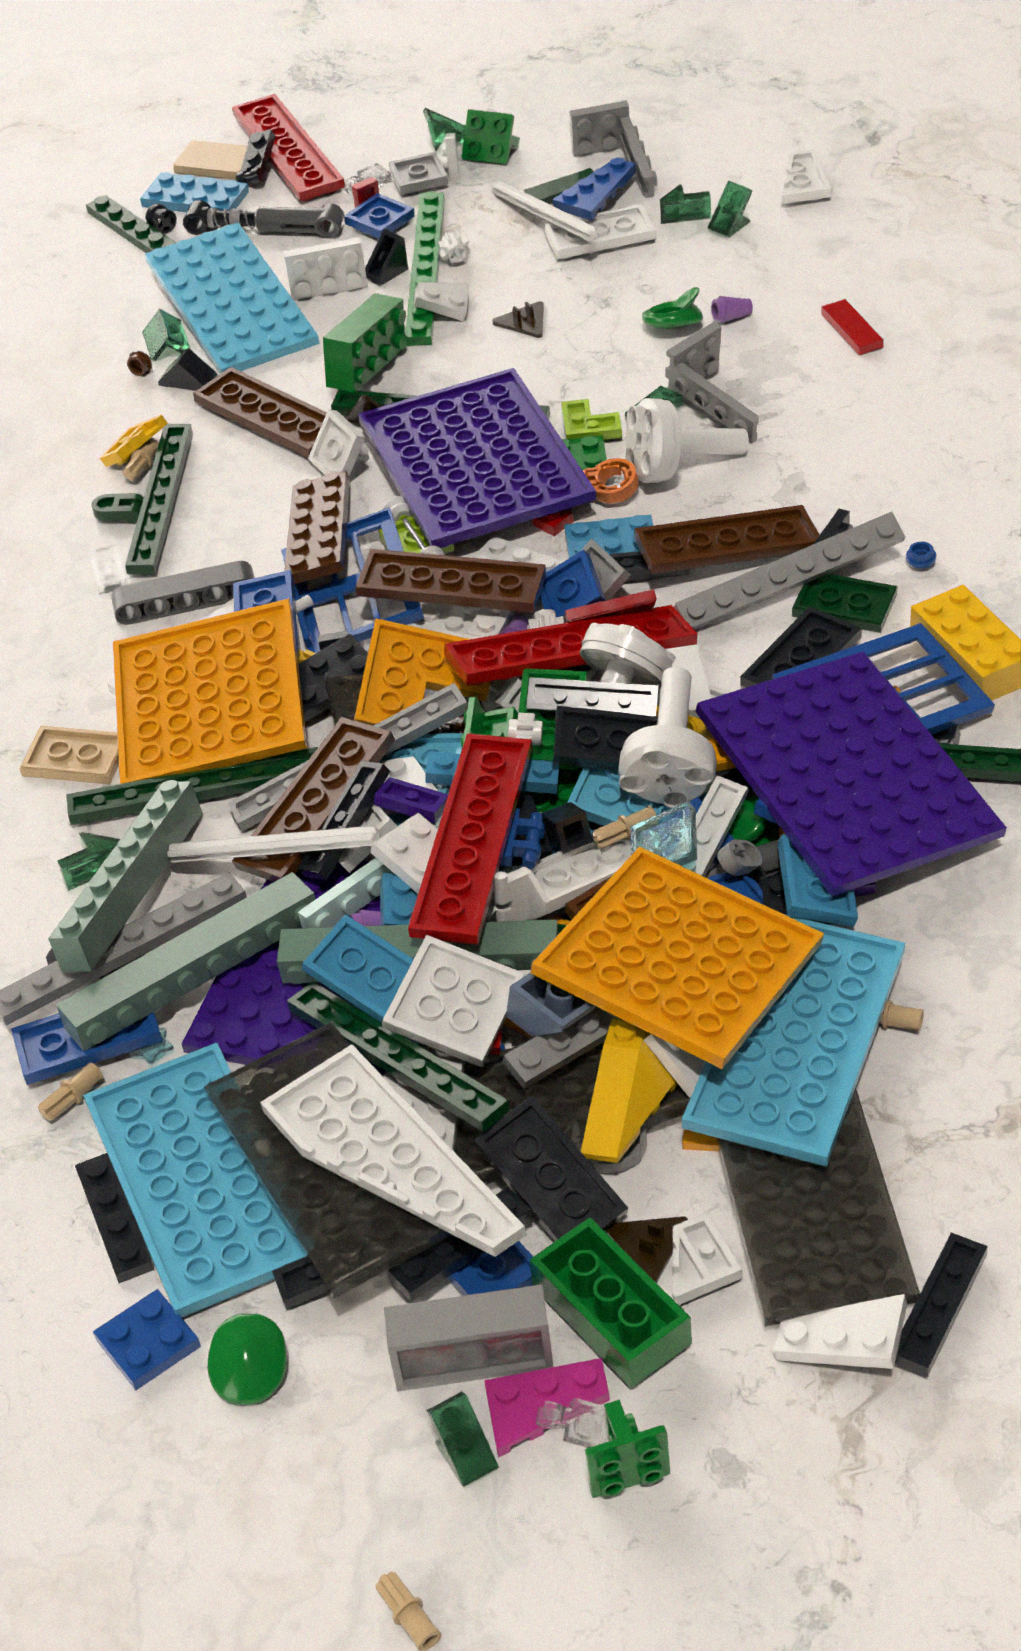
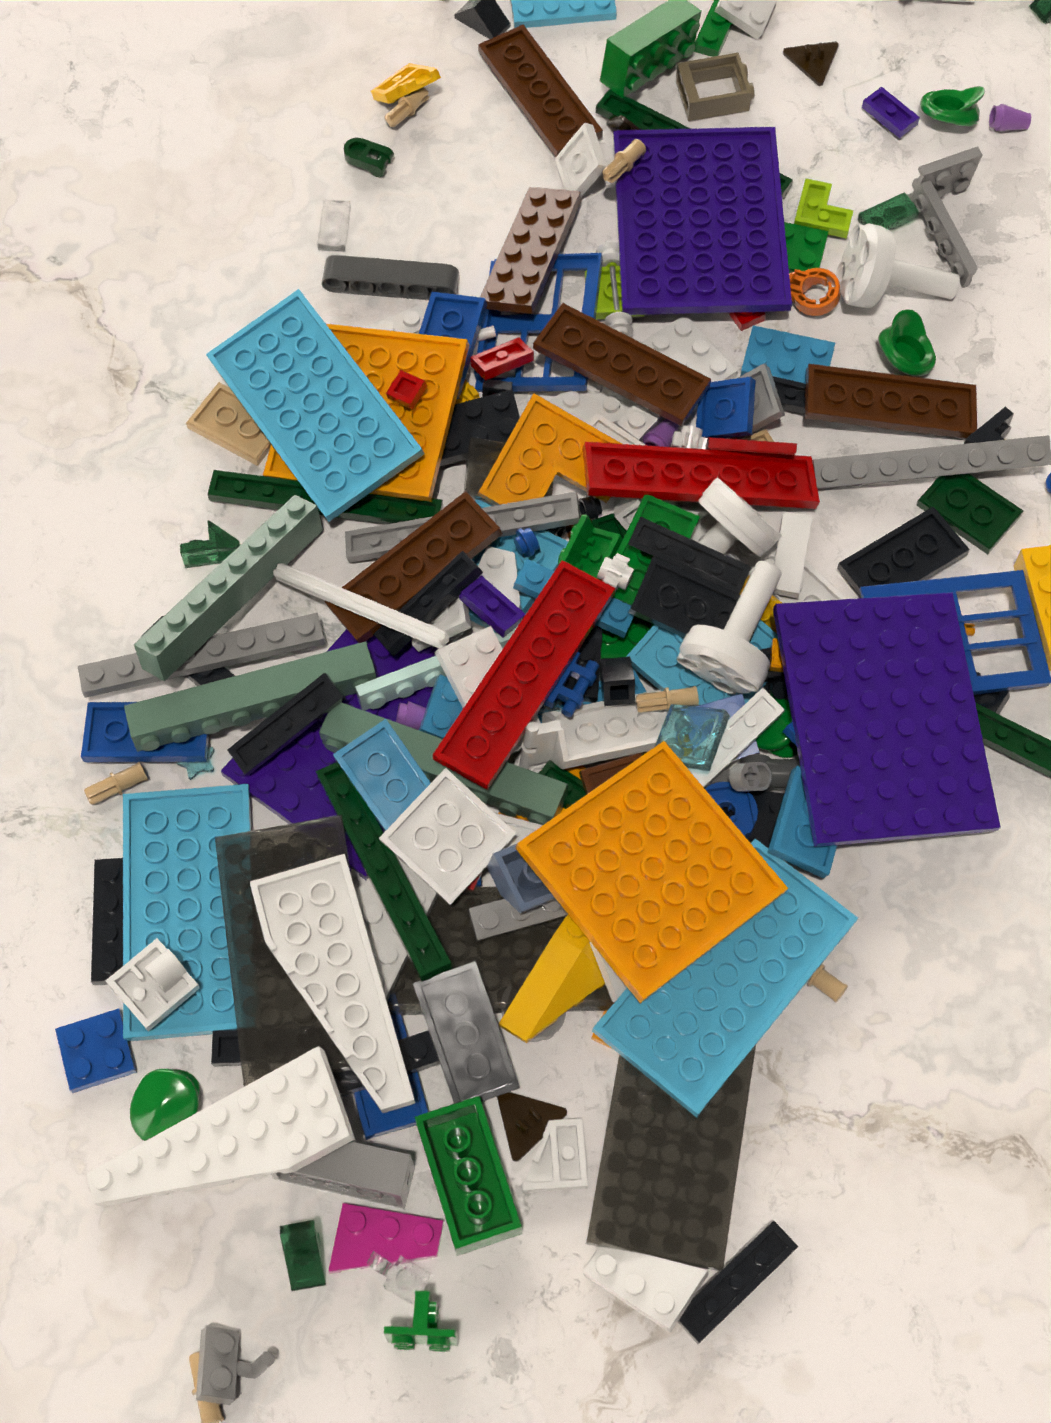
camera: 15 degrees right, 20 degrees up
(153, 702) = (315, 405): none -> medium azure plate
(159, 500) = (406, 159): plate -> none
(189, 1243) = (153, 984): none -> white plate
(238, 967) = (286, 724): none -> black plate
(244, 656) = (406, 389): none -> red plate
(328, 616) = (502, 358): none -> red plate
(373, 1309) = (254, 1132): none -> white wing
(380, 428) = (624, 161): none -> tan axle
(414, 1578) = (220, 1366): none -> light grey plate
(415, 357) = (713, 69): none -> dark tan window
(421, 742) = (526, 542): none -> blue plate
(617, 334) = (890, 112): none -> dark purple plate
(720, 492) = (907, 344): none -> green piece

